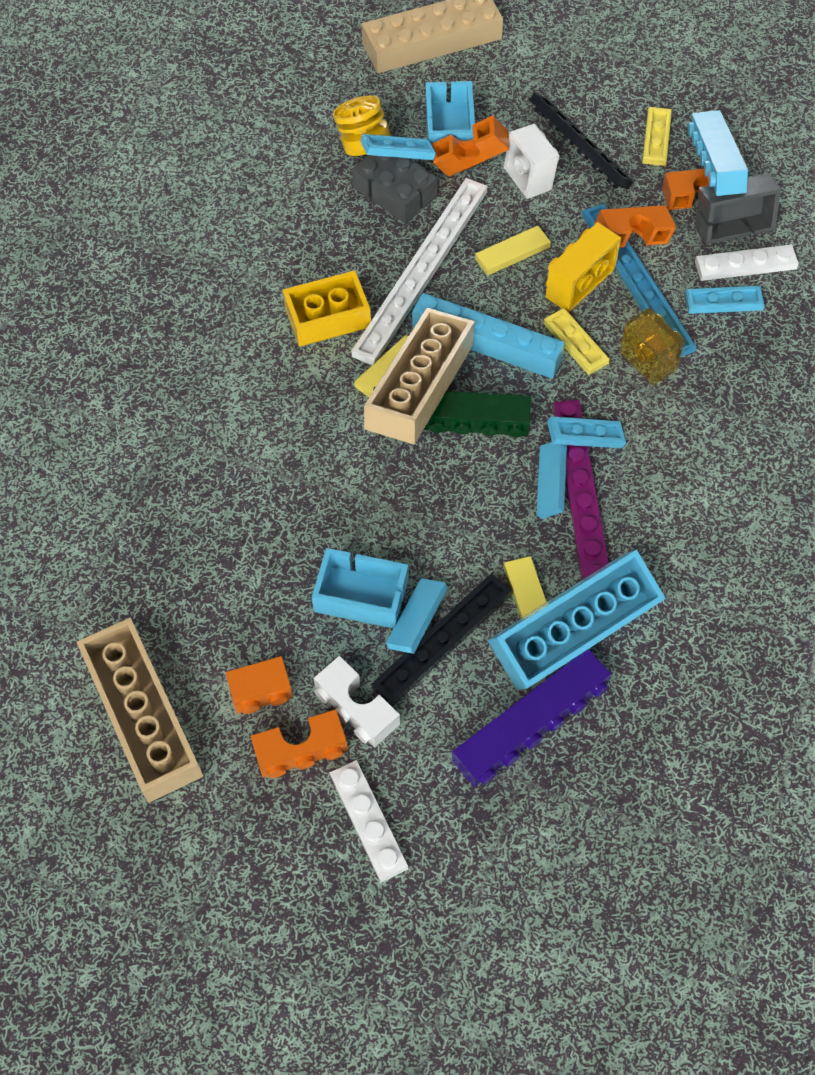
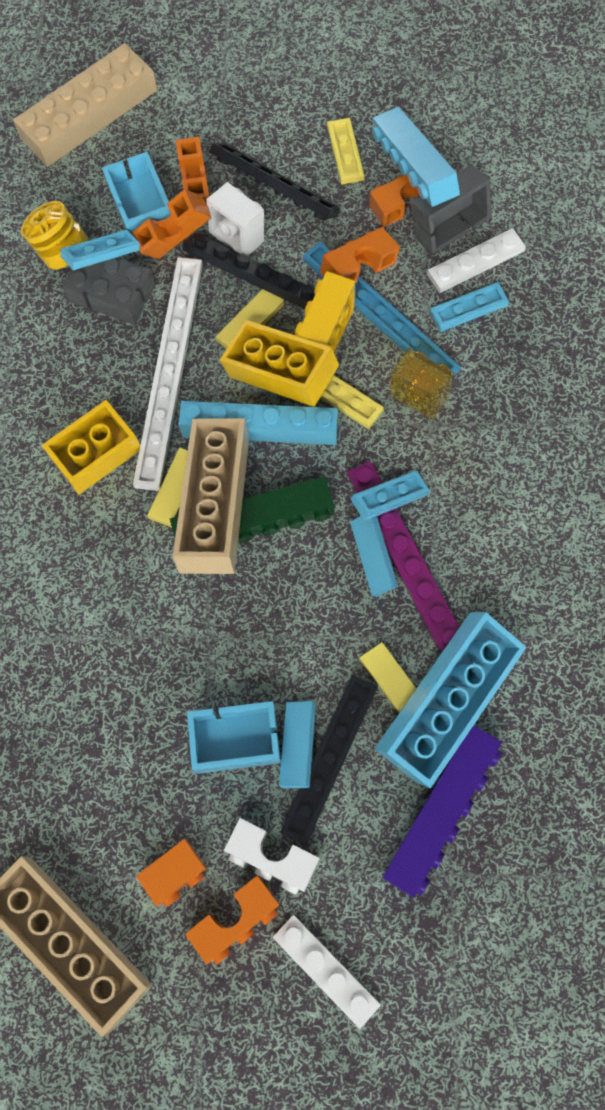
camera: 15 degrees left, 10 degrees up
(509, 104) = (192, 166): none -> orange arch
(525, 288) = (280, 362): none -> yellow brick
(526, 206) = (249, 270): none -> black plate

